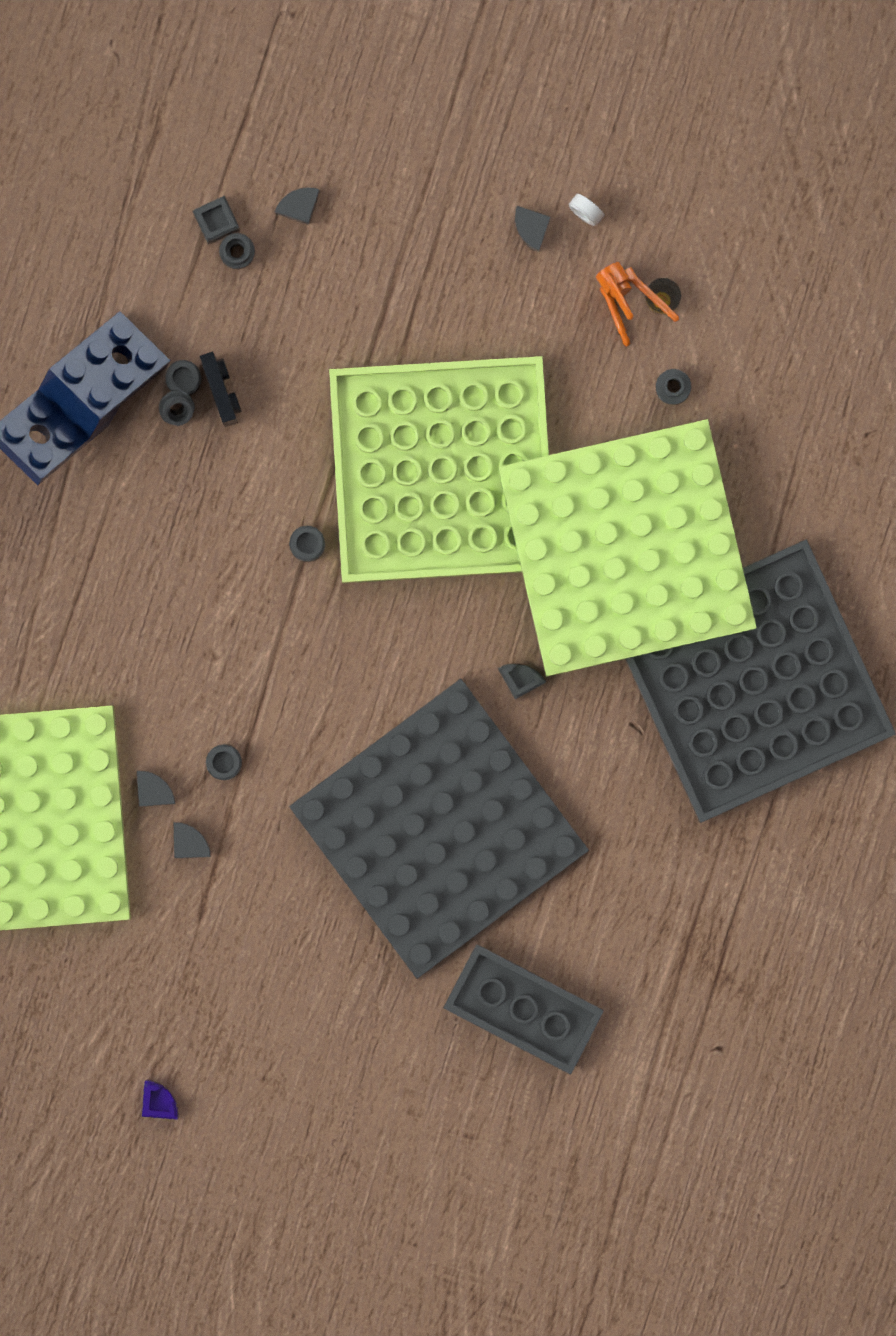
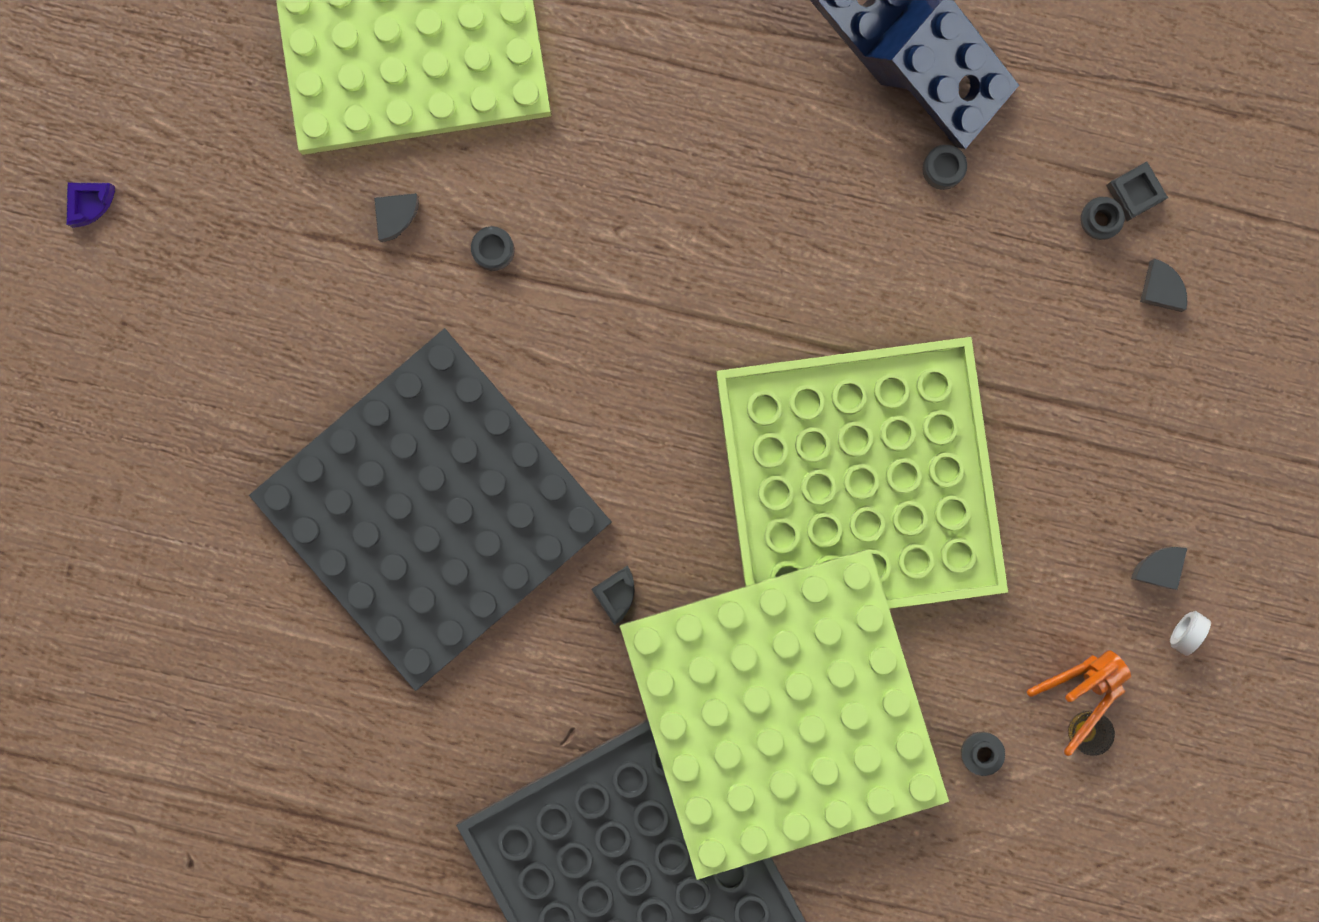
camera: 85 degrees right, 0 degrees up
(153, 790) = (453, 168): dark grey tile -> none
(179, 416) = (898, 162): dark grey plate -> none
(216, 374) = (953, 203): black plate -> none
(307, 543) = (759, 327): dark grey tile -> none
(523, 1009) = (219, 626): dark grey plate -> none

